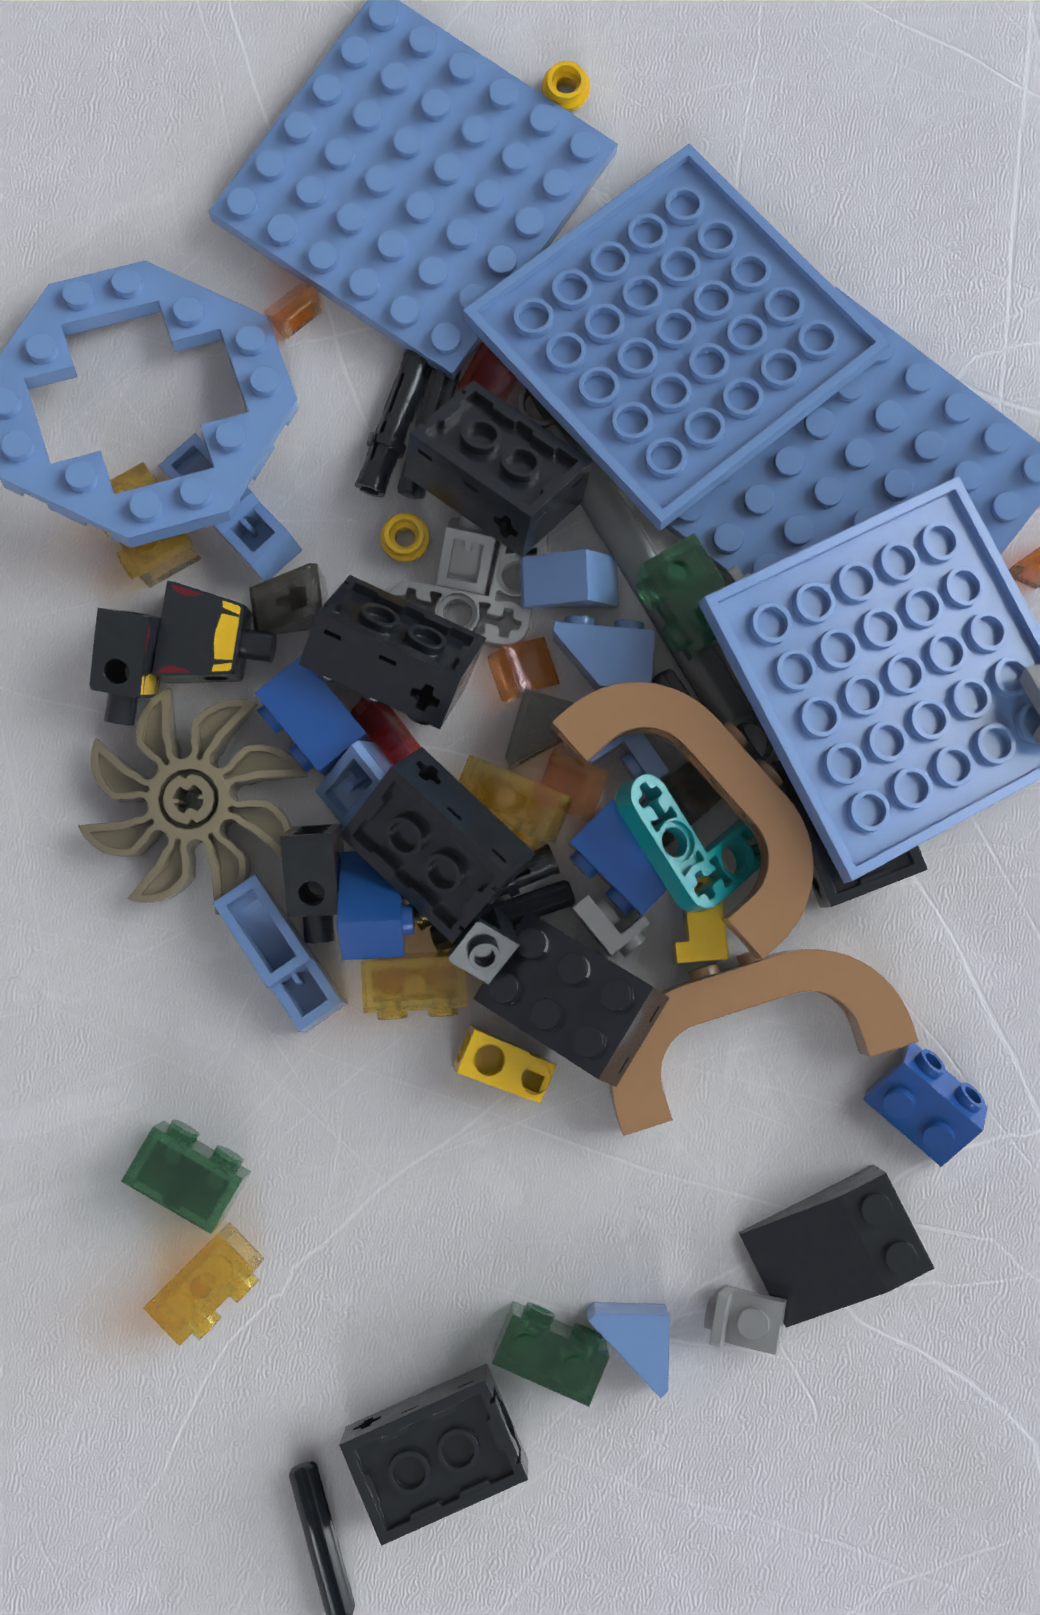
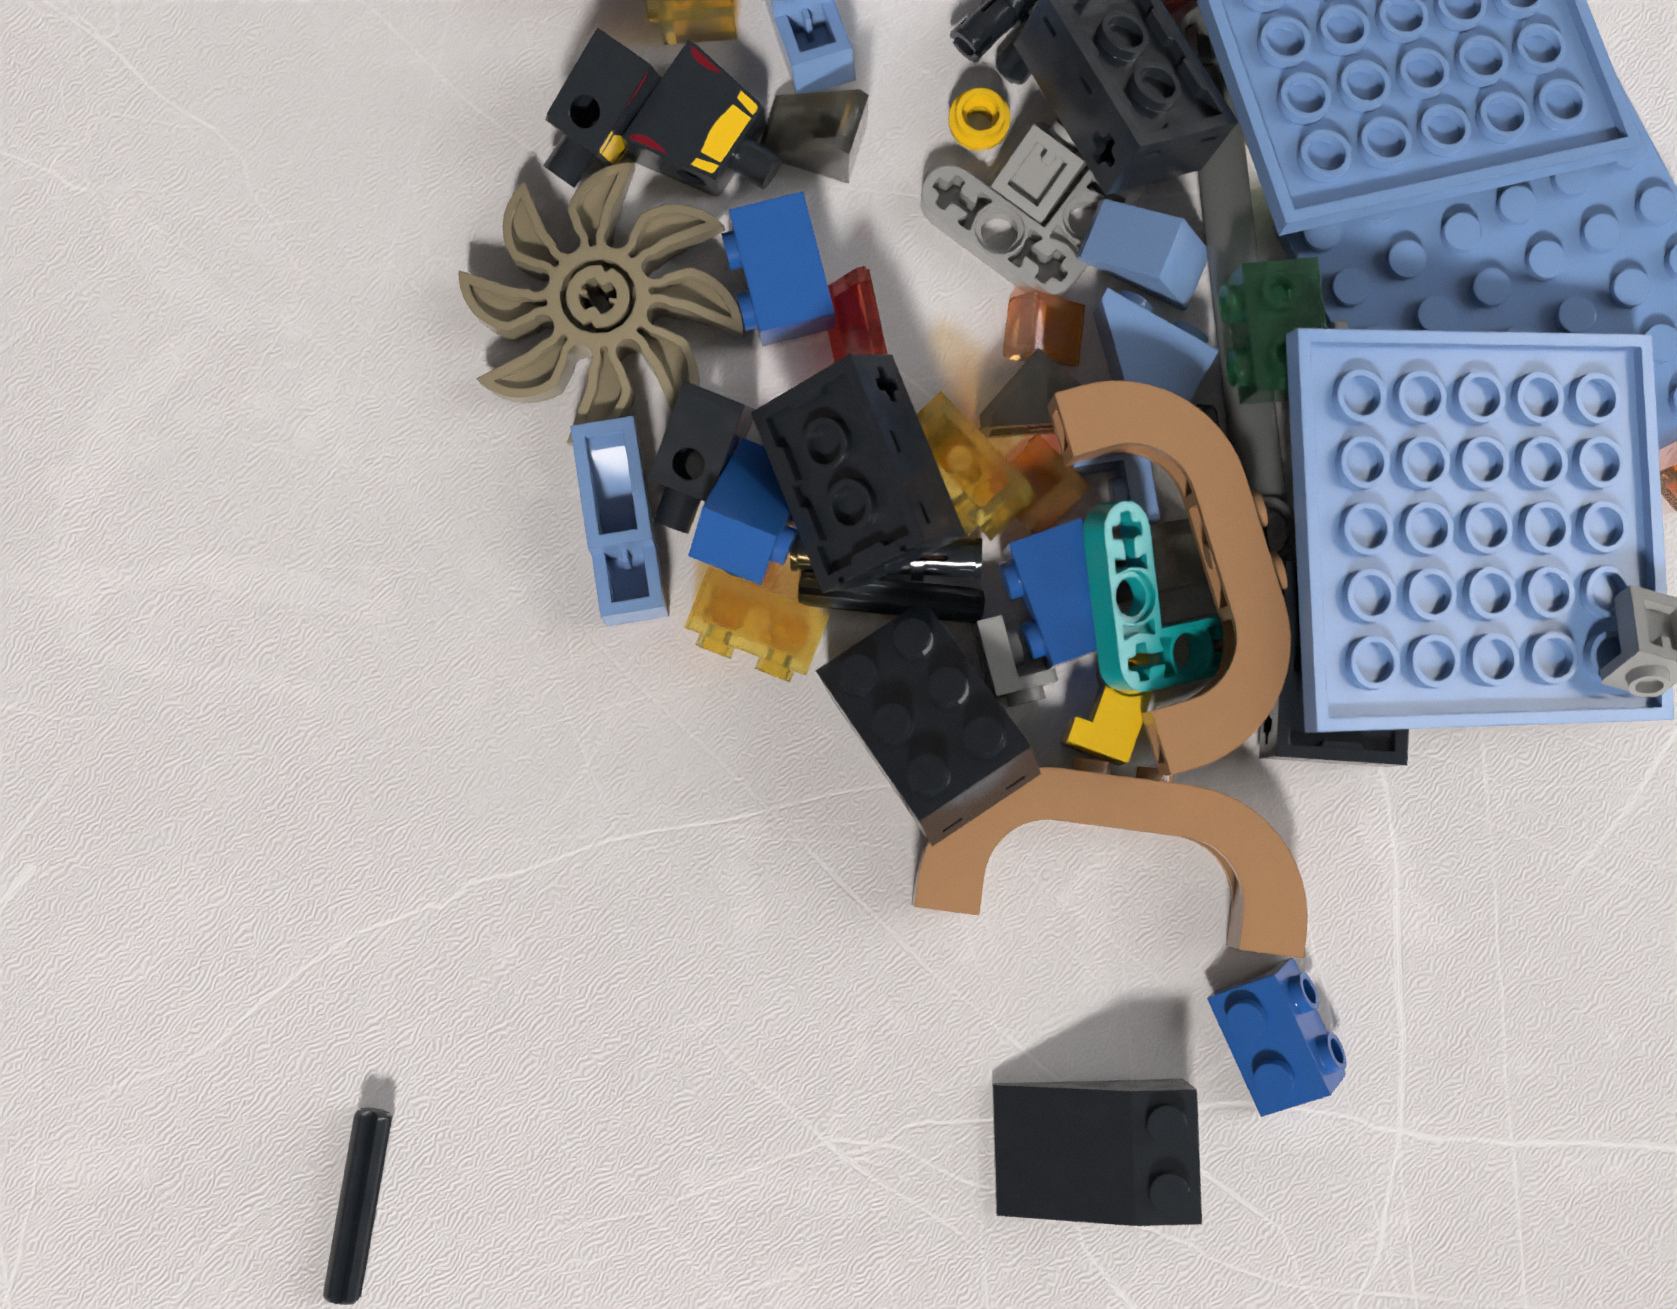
camera: 20 degrees right, 0 degrees up
(187, 1174) = (399, 719): clear green brick -> none
(218, 1271) = (359, 851): clear yellow brick -> none
(353, 779) = (792, 358): medium blue slope -> none
(392, 651) = (906, 235): black piece -> none
(434, 1454) = (530, 1166): black piece -> none
(485, 946) = (857, 615): bracket -> none
(503, 1065) = (815, 765): yellow leg -> none
(551, 1352) = (717, 1114): clear green brick -> none
(639, 1336) = (825, 1145): medium blue slope -> none
(745, 1319) = (955, 1183): light grey bracket -> none

